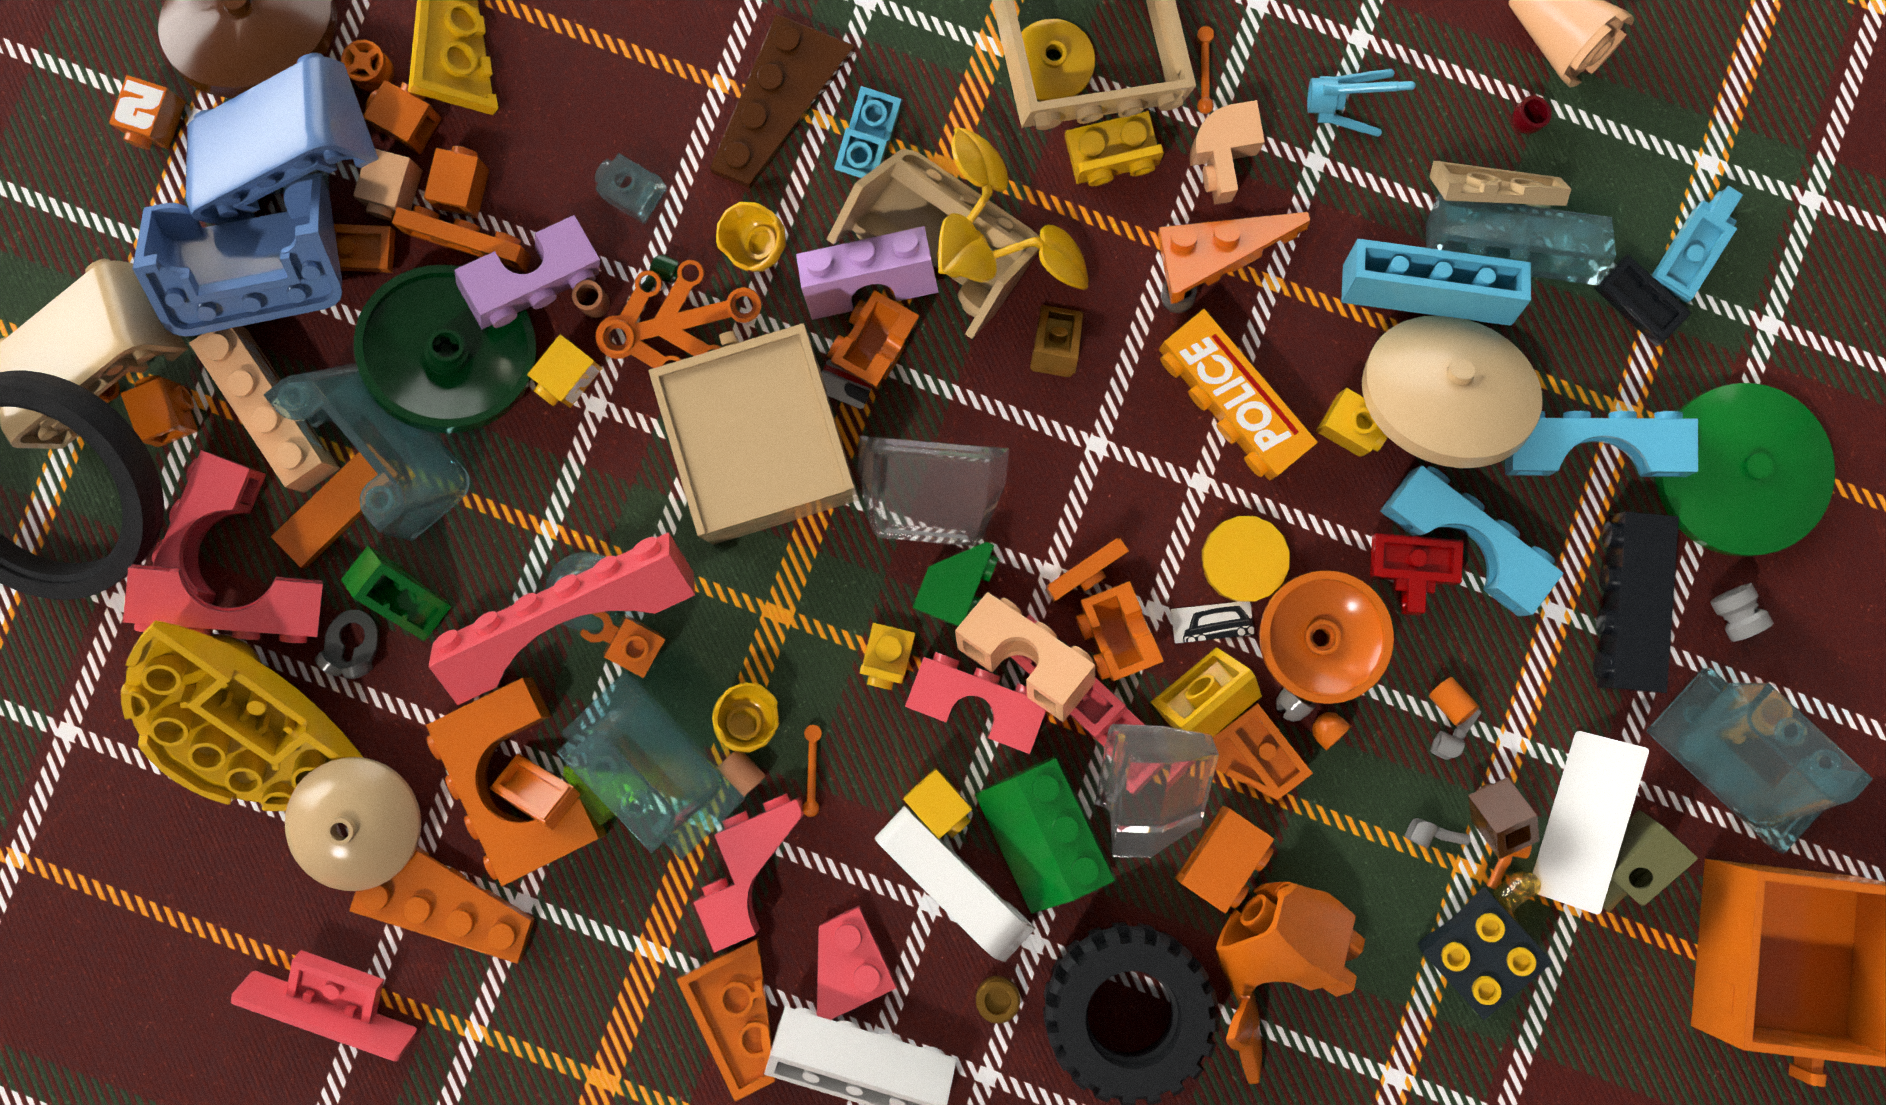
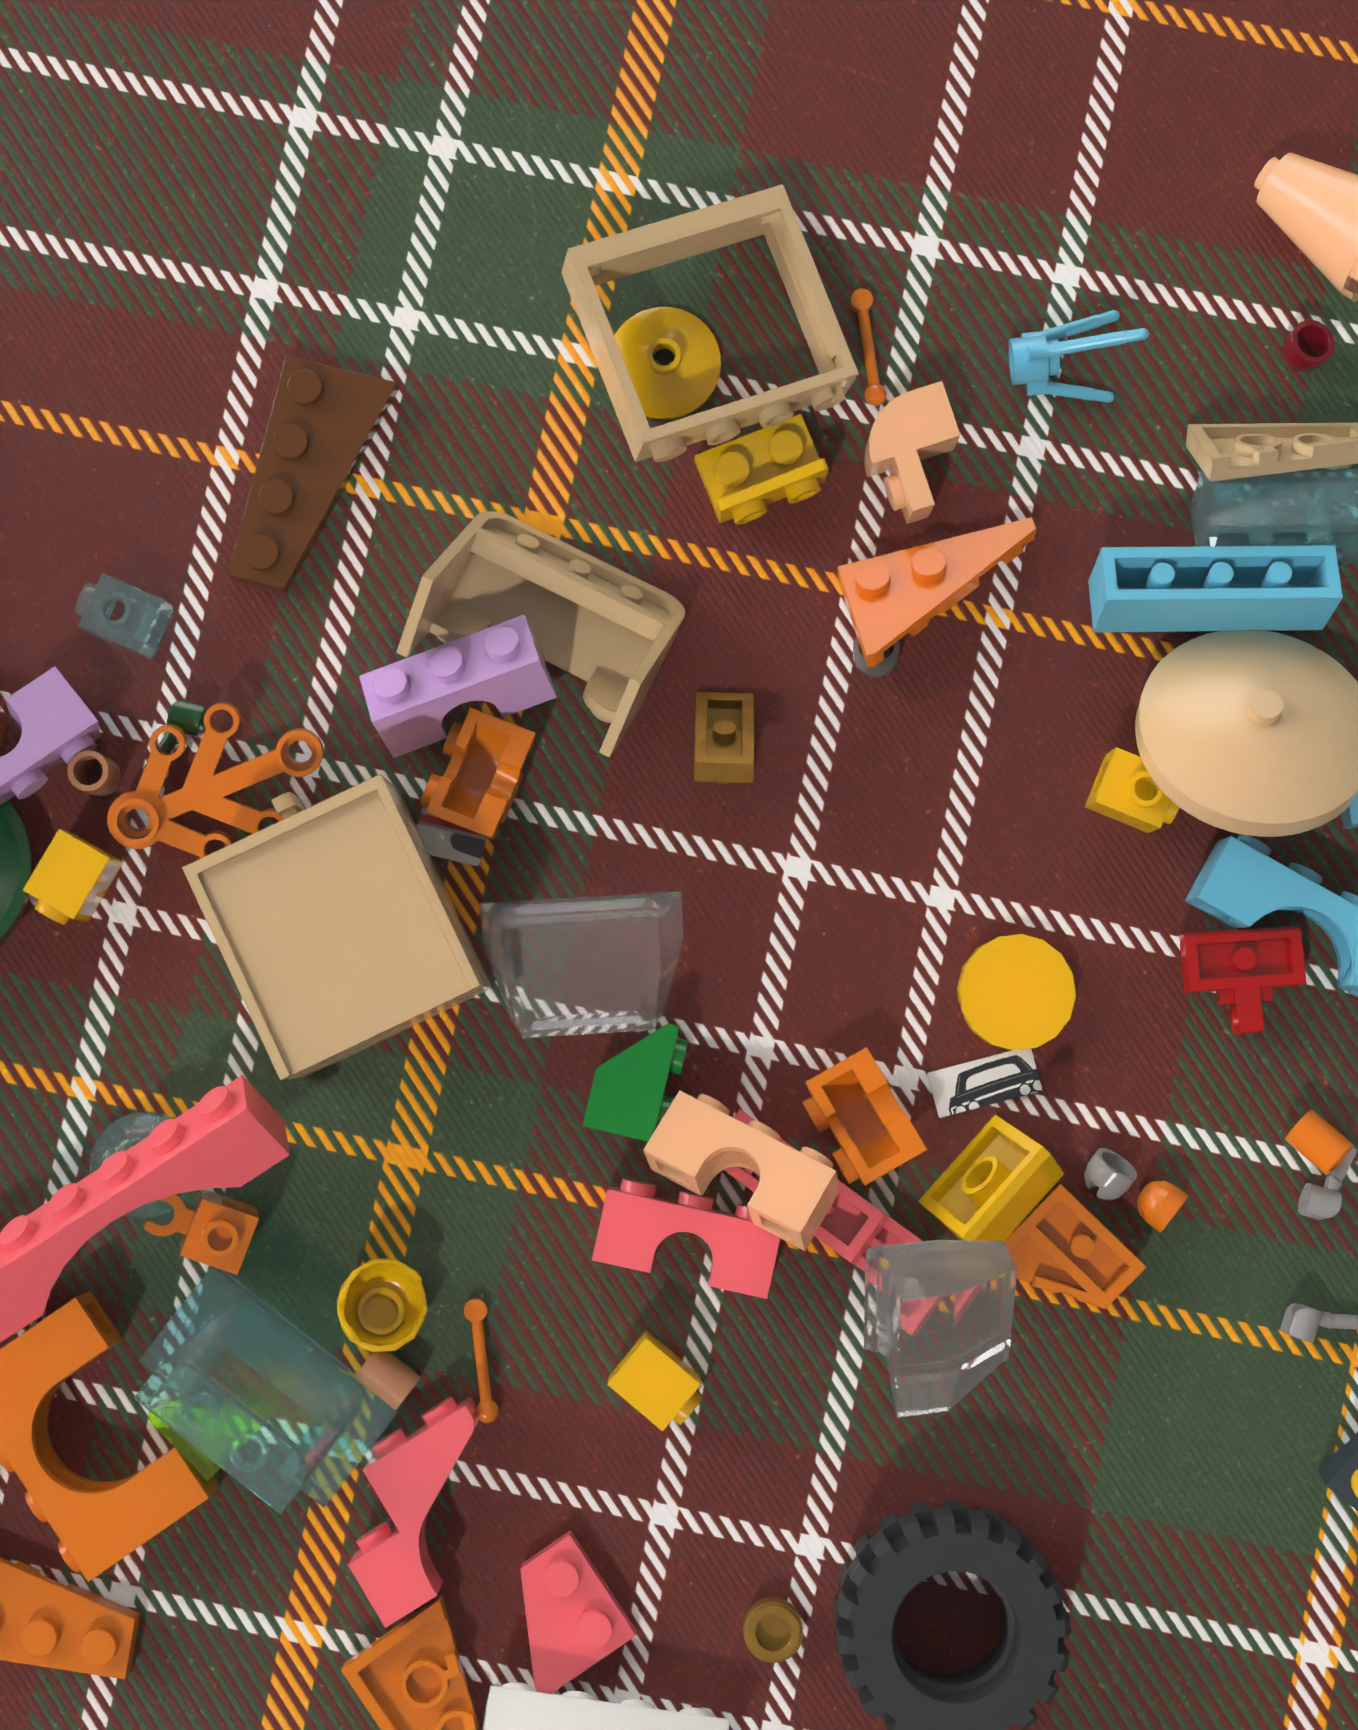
camera: 10 degrees left, 0 degrees up
(535, 791) = (115, 1447): orange tile -> none
(751, 236) = (295, 659): yellow hair -> none
(868, 133) = (433, 496): medium azure slope -> none
(887, 656) = (559, 1193): yellow bracket -> none
(954, 885) = (708, 1502): white beam -> none
(965, 250) = (581, 638): yellow plant -> none
(1044, 836) = (802, 1403): green slope -> none
(1088, 571) = (809, 1042): orange plate -> none
(1226, 860) = (1048, 1399): orange brick -> none
(1236, 396) = (973, 778): light orange brick -> none
(1284, 937) = (1143, 1494): orange hips -> none
(1356, 637) = (1178, 1090): orange dish -> none

